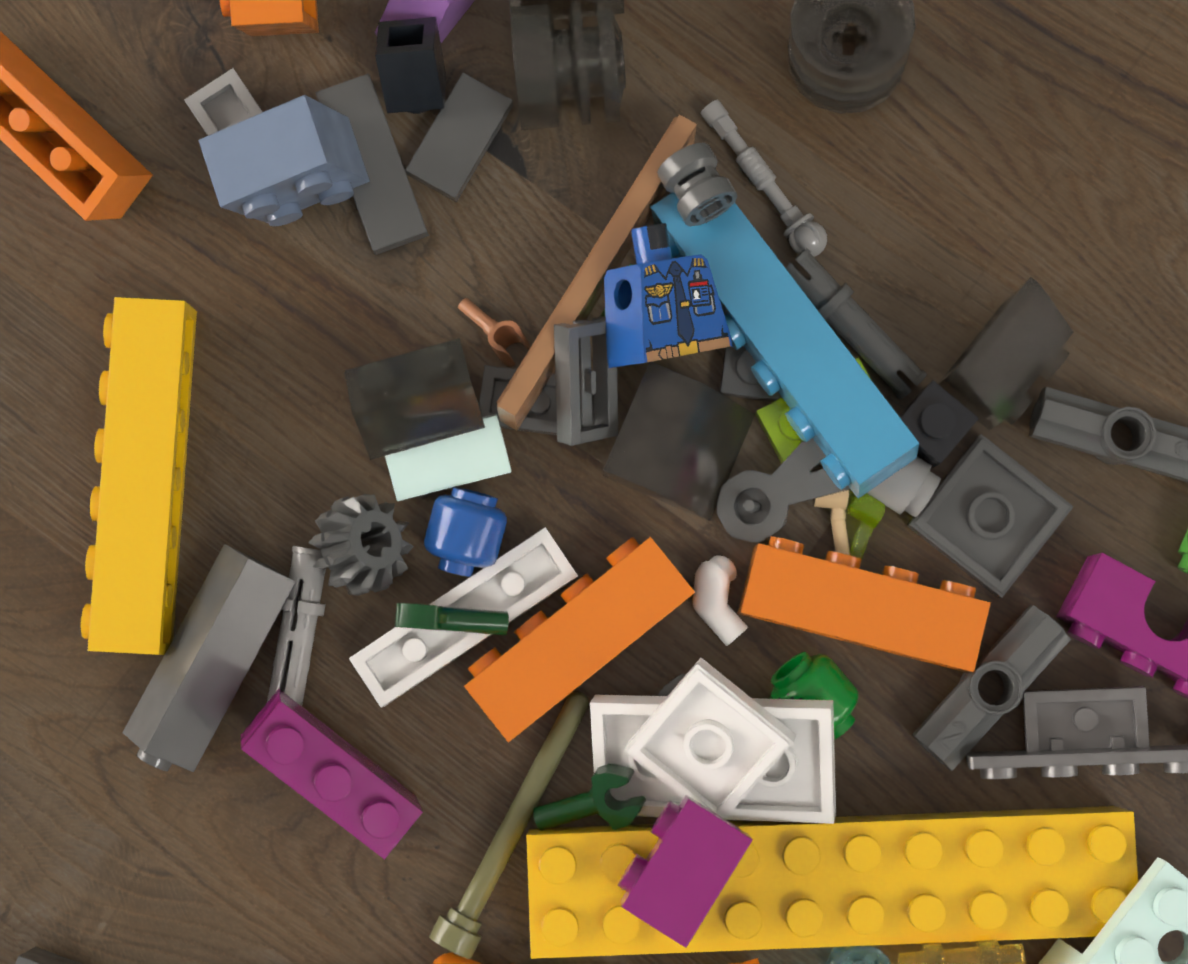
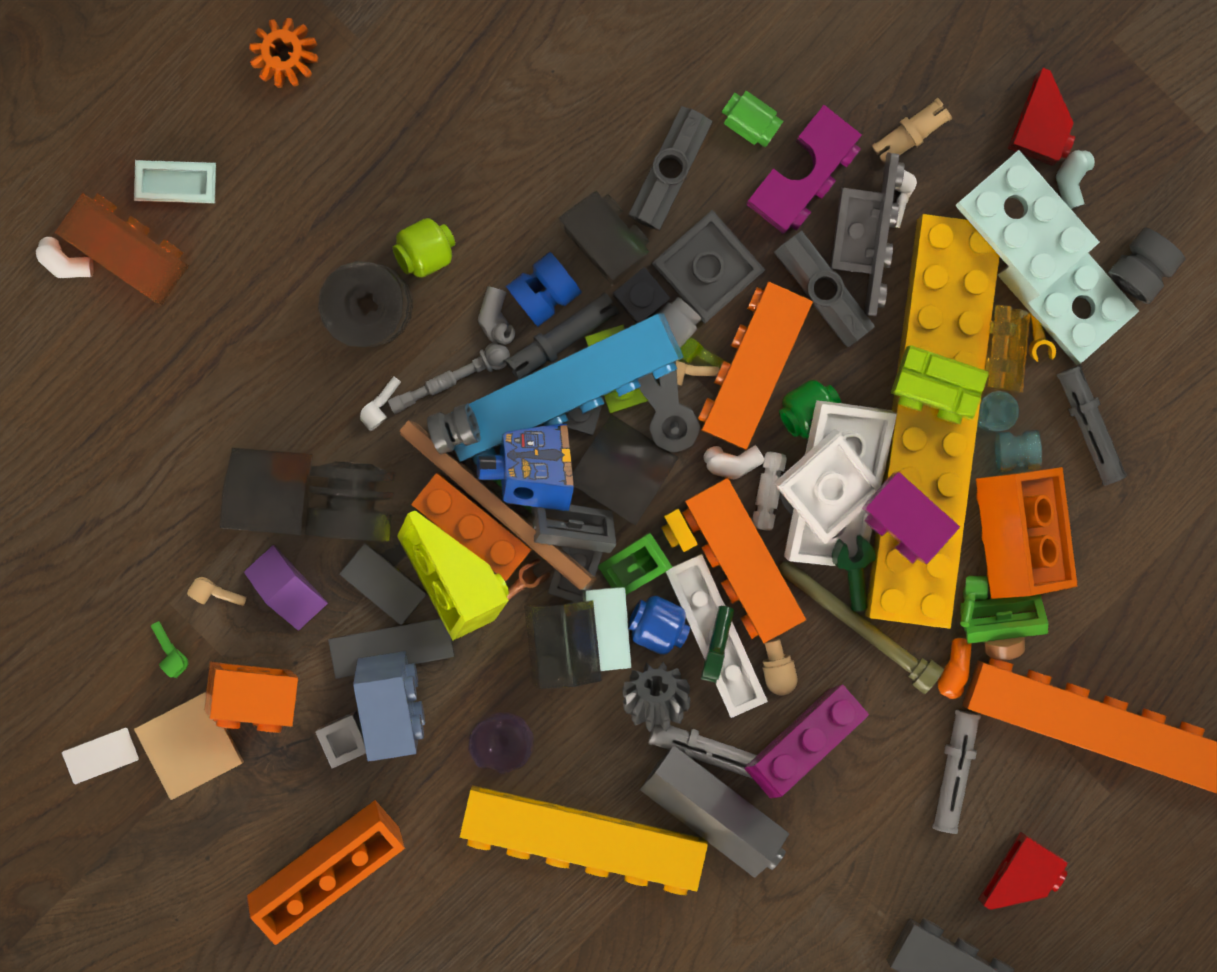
camera: 85 degrees left, 5 degrees up
(260, 335) = (501, 742): none -> hair
(411, 65) = (331, 609): black brick -> none
(430, 717) = (779, 669): none -> tan cylinder
(483, 229) = (454, 577): none -> neon yellow slope
(548, 484) = (635, 564): none -> bright green slope
(560, 239) = (471, 525): none -> orange brick
(604, 536) = (677, 531): none -> yellow plate
(682, 656) = (768, 493): none -> white axle
(697, 78) = (371, 413): none -> white hand
(858, 224) = (492, 320): none -> light grey arm
(891, 879) = (940, 384): none -> lime brick
(916, 285) = (546, 274): none -> blue wheel
(943, 109) = (423, 247): none -> lime head
(1157, 781) = (908, 186): none -> white hand

